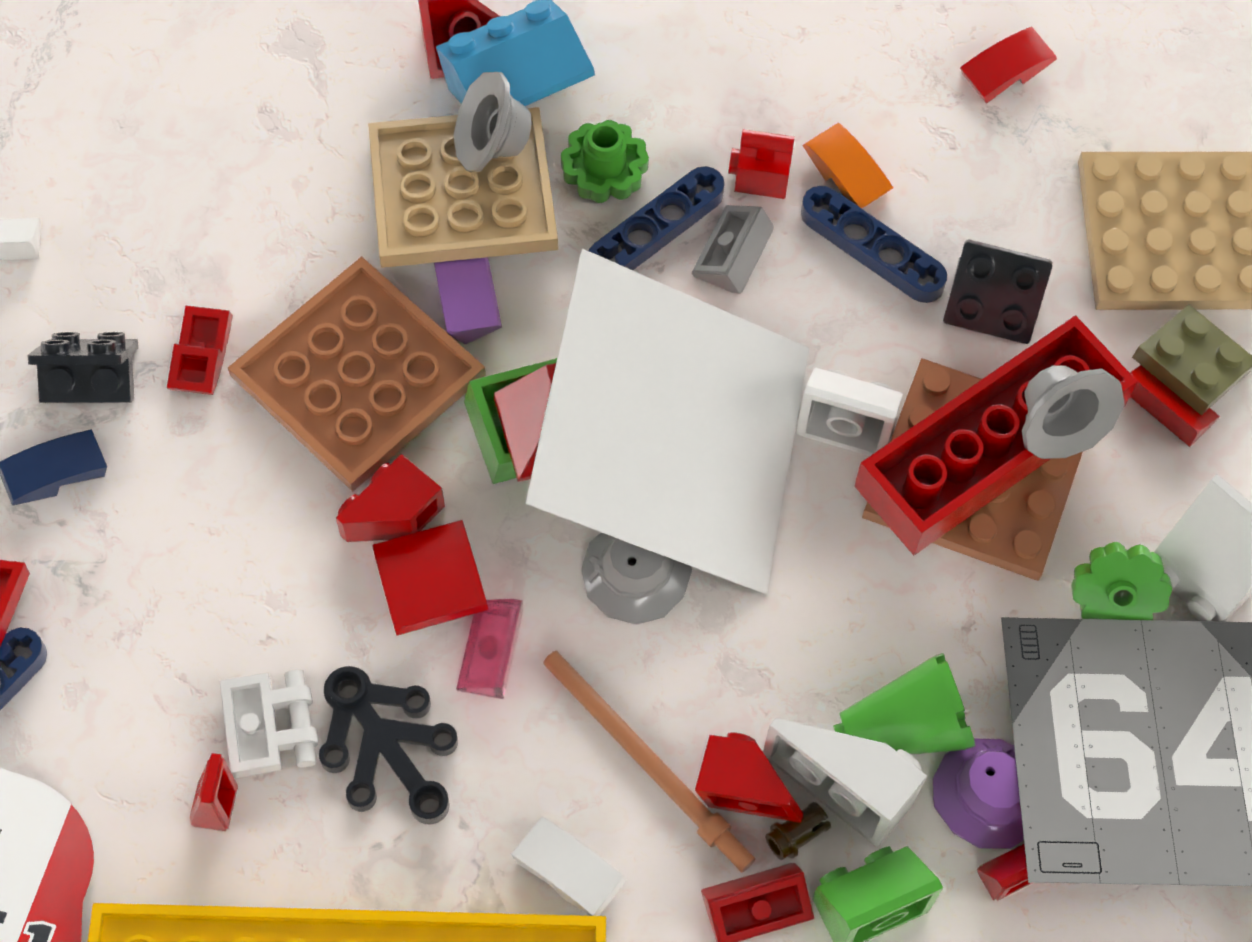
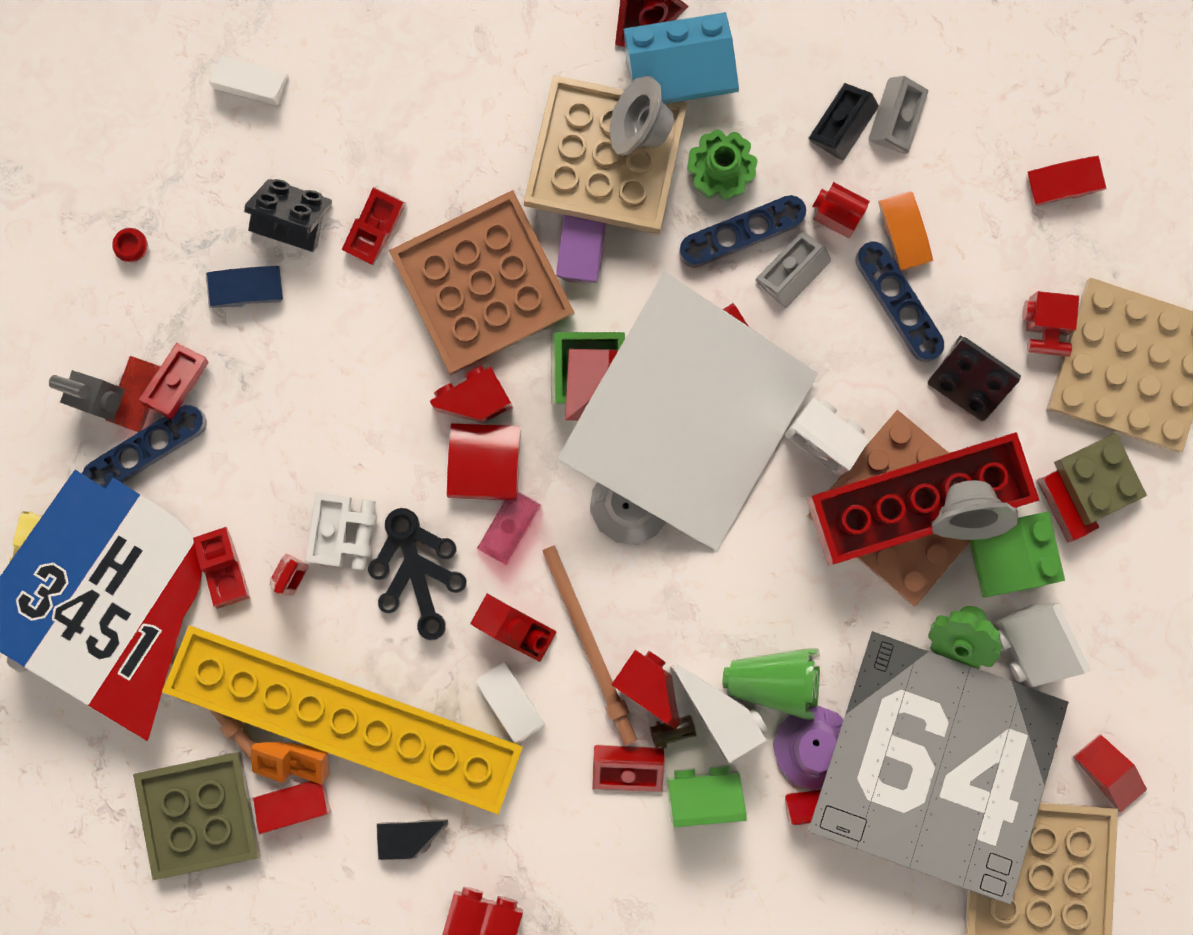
camera: 20 degrees right, 20 degrees up
(117, 823) = (221, 567): none -> red slope
(538, 766) = (513, 627): none -> red slope
(729, 79) = (844, 121): none -> black slope
(788, 54) = (898, 114): none -> light grey slope
(1058, 203) = (1052, 316): none -> red brick
(1138, 469) = (1019, 558): none -> bright green slope

